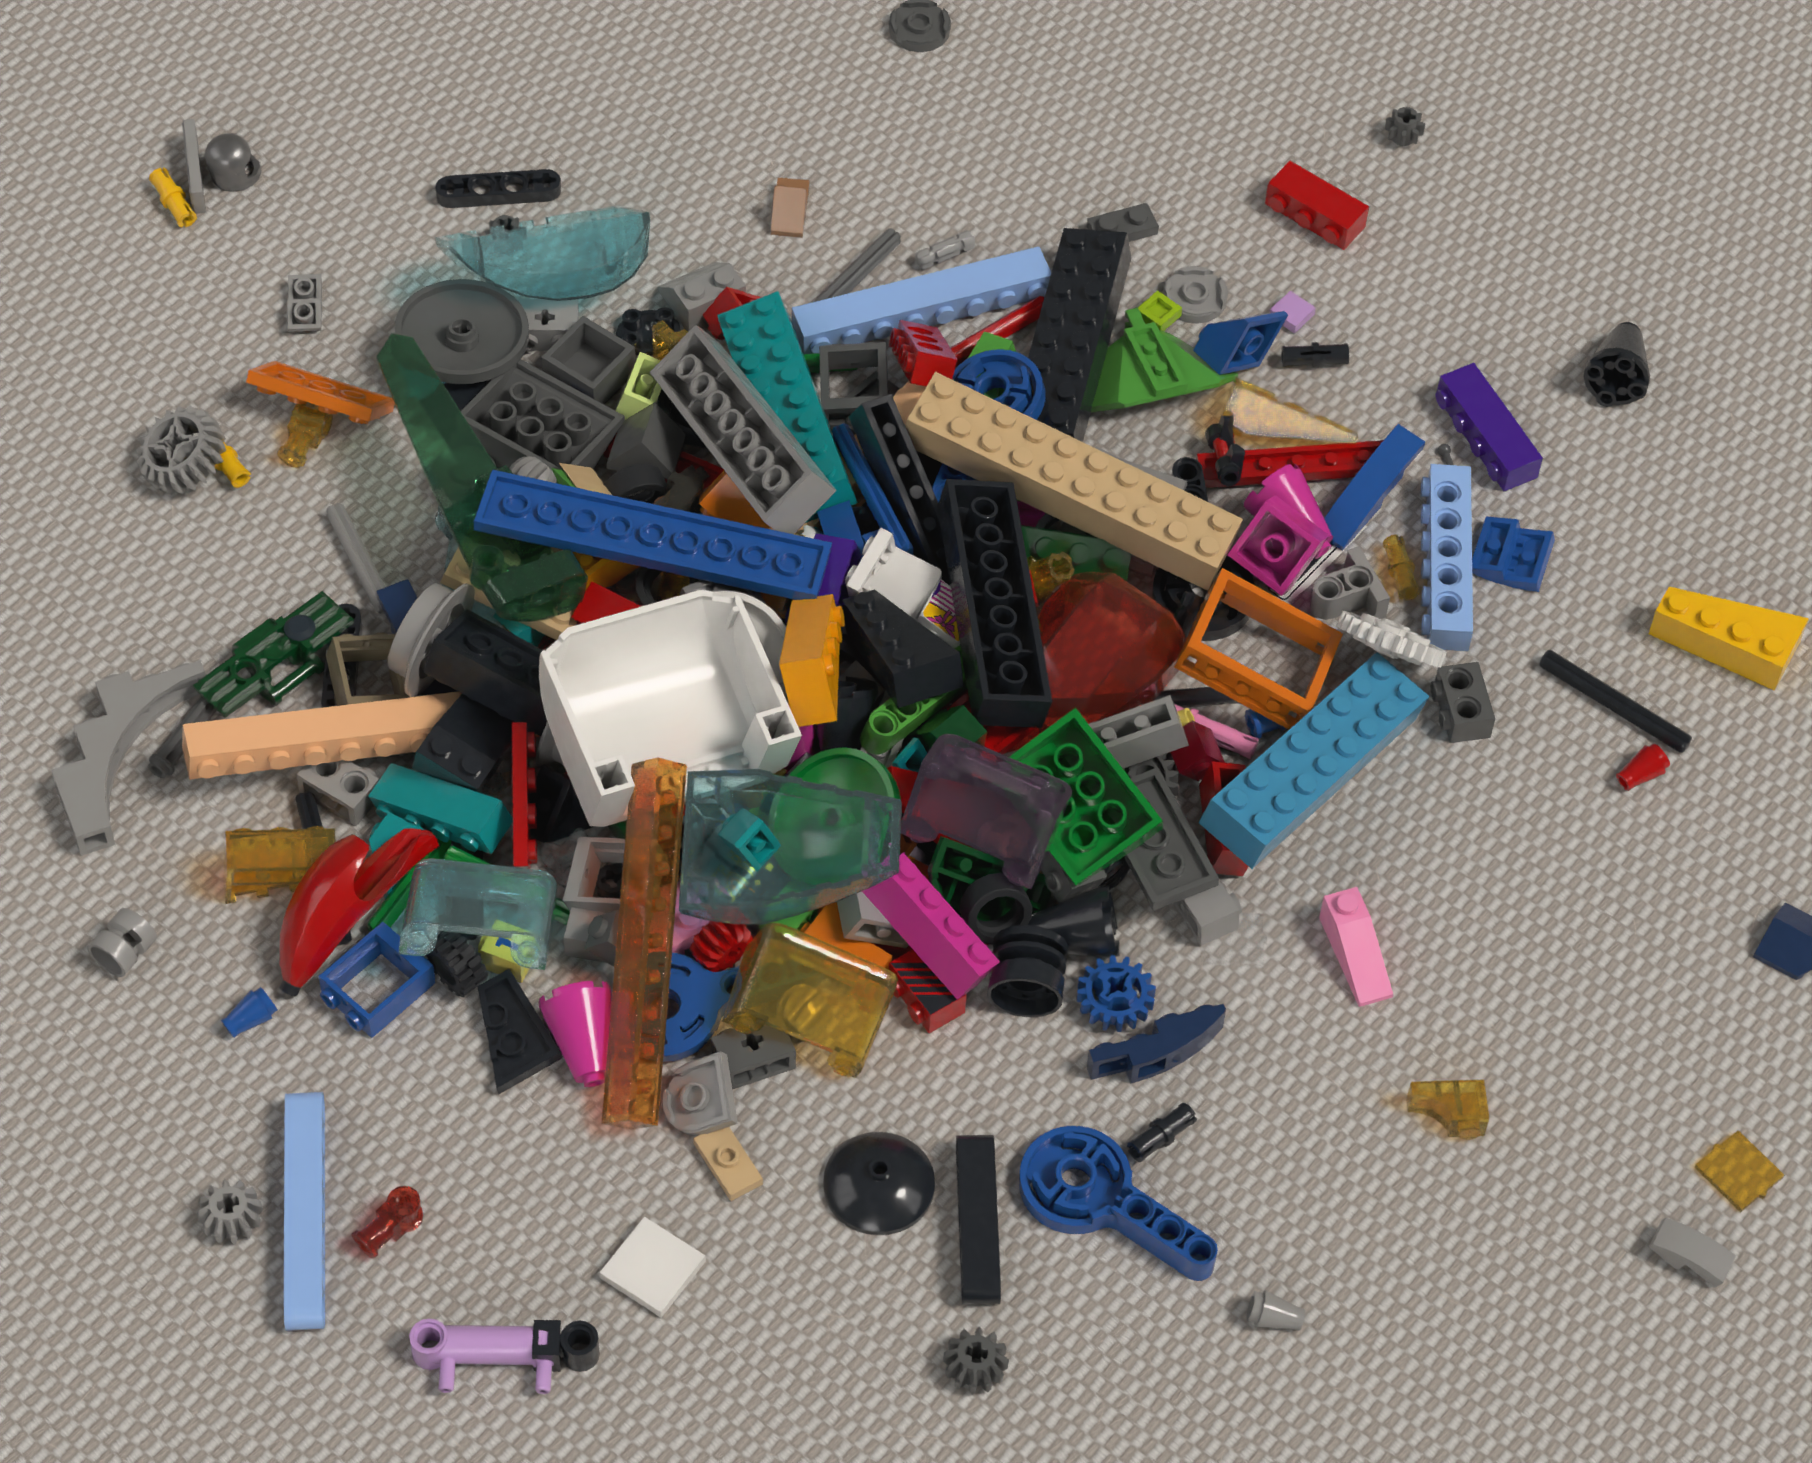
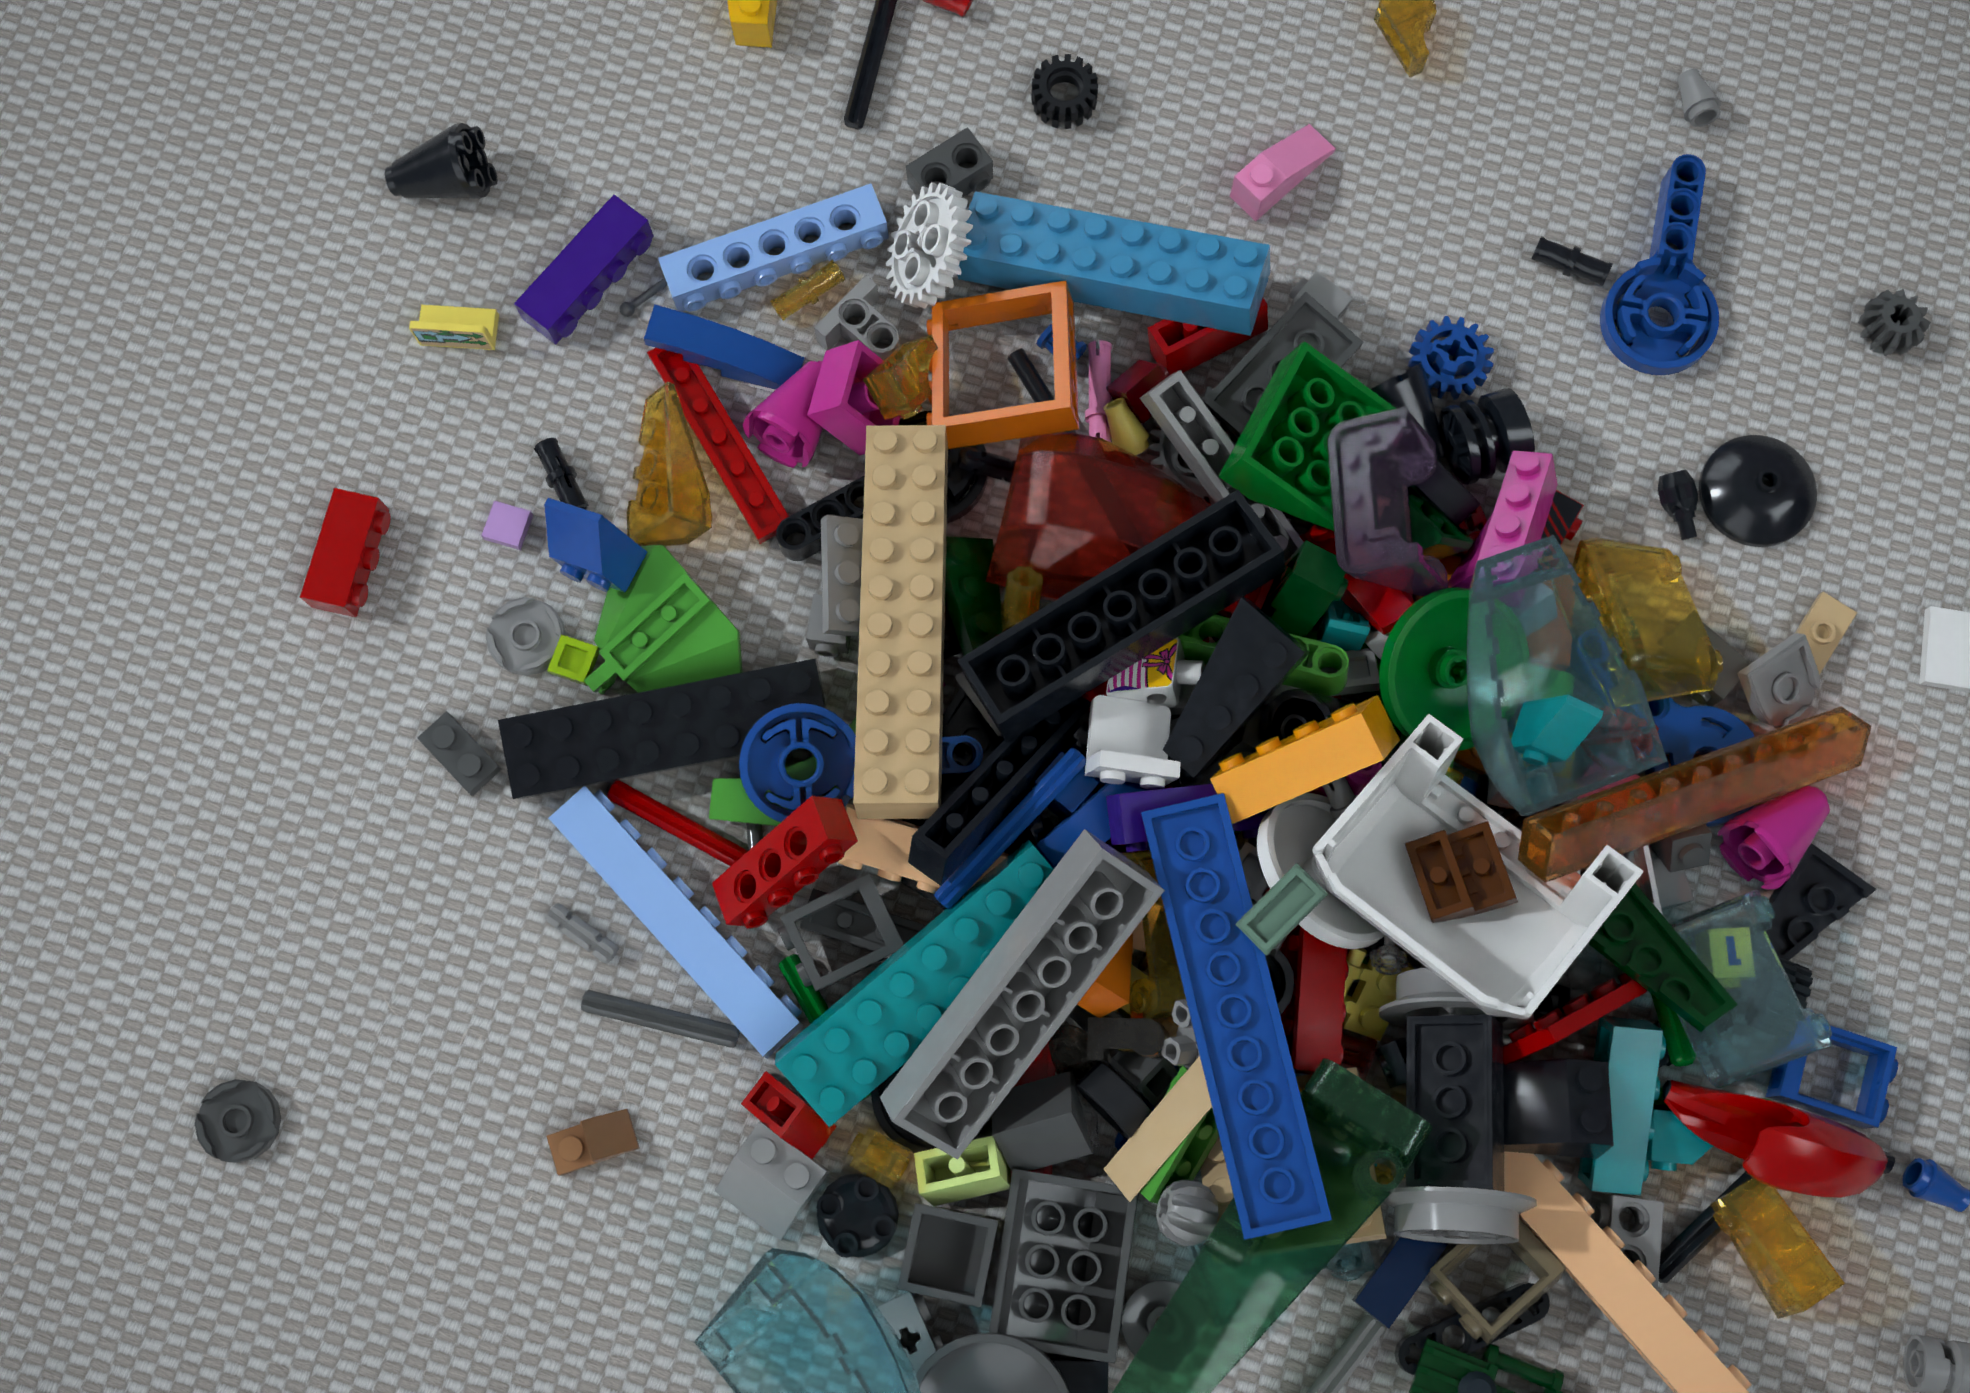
camera: 110 degrees left, 20 degrees up
(541, 851) = (1660, 961): none -> dark green wing
(671, 728) = (1460, 873): none -> reddish brown slope
(706, 573) = (1281, 909): none -> sand green tile
(900, 1108) = (1679, 499): none -> black piece
(978, 1219) = (1753, 381): black beam -> none
(1171, 1043) = (1475, 285): dark blue slope -> none
(1229, 455) = (770, 491): black piece -> none
(1278, 569) = (902, 379): none -> clear yellow arch
(1404, 126) = (185, 503): dark grey gear -> none
(1477, 332) = (456, 327): none -> light yellow panel
(1511, 801) = (1066, 72): none -> black tyre
(1512, 554) = (734, 194): blue slope -> none

